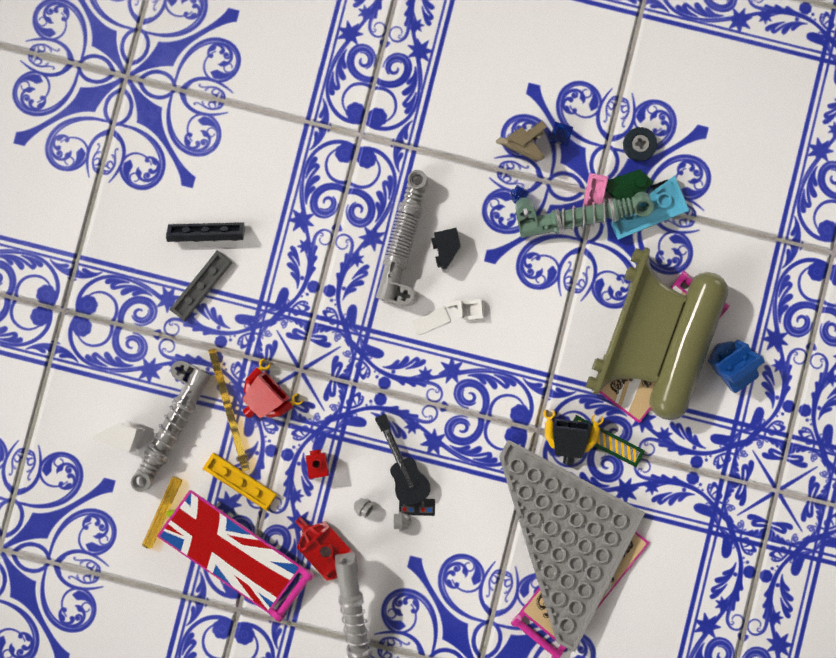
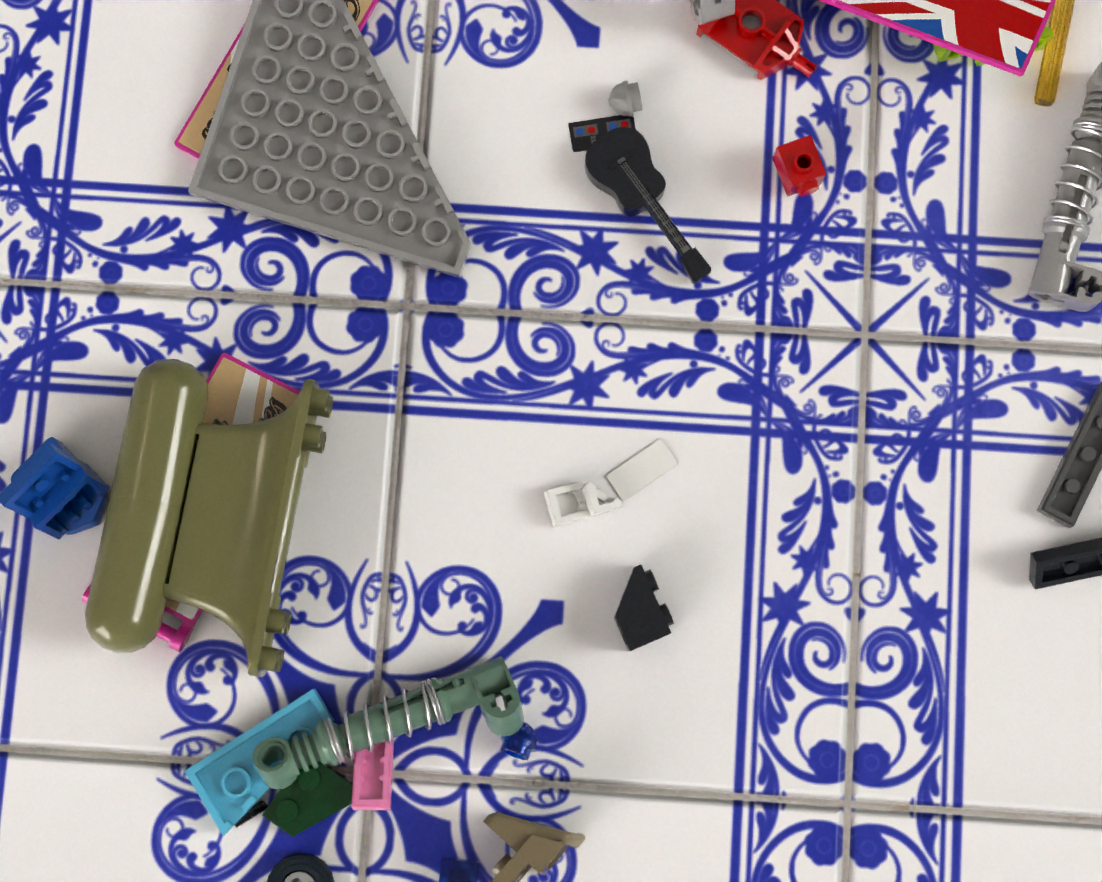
camera: 170 degrees right, 5 degrees down
(239, 481) = (931, 118): yellow tile -> none
(242, 457) = (937, 160): clear yellow bar -> none
(265, 396) = (921, 270): torso -> none
(363, 507) = (699, 110): light grey plate -> none
(401, 243) = (730, 607): light grey piece -> none
(570, 437) = (344, 297): black torso -> none
(616, 446) = (279, 308): tile -> none

